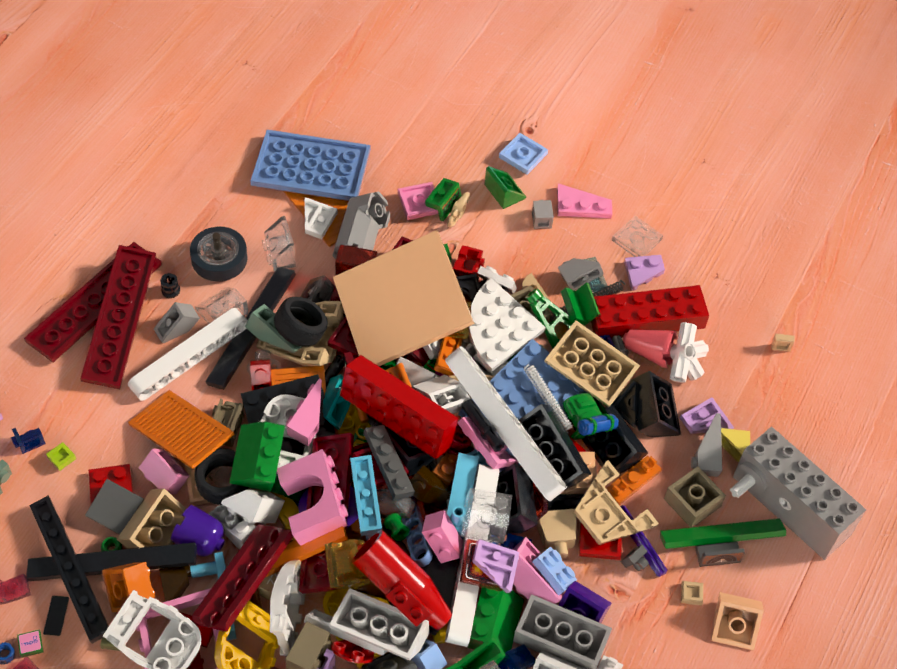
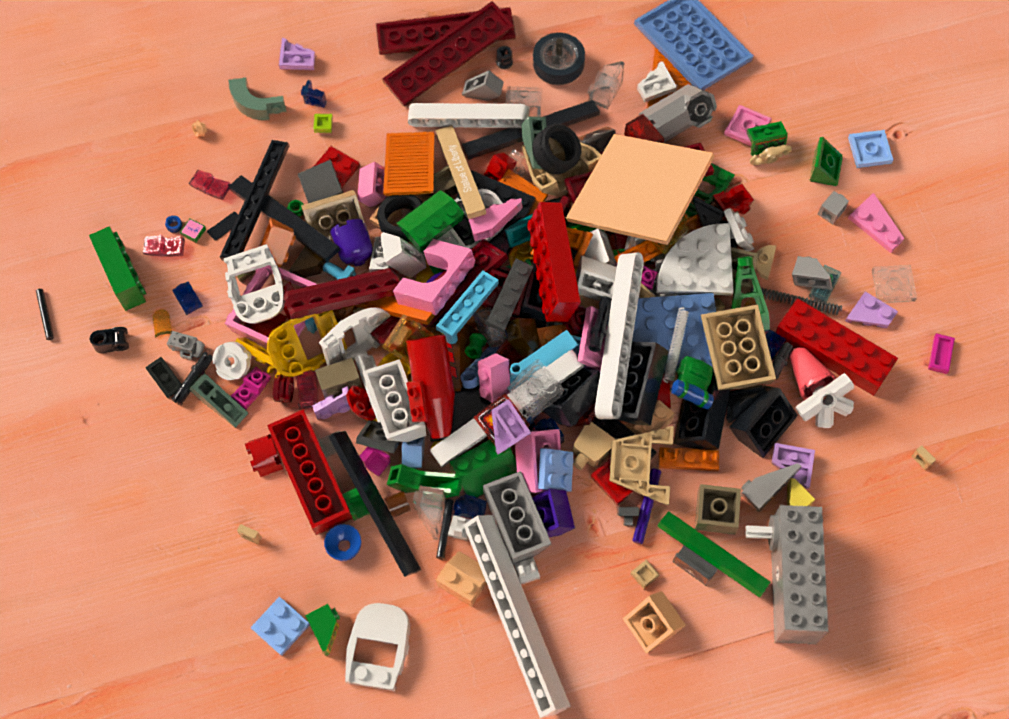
camera: 50 degrees right, 10 degrees up
(238, 400) = (461, 172): none -> tan tile
(580, 304) = (782, 297): green panel -> none
(717, 262) = (941, 353): none -> dark pink tile

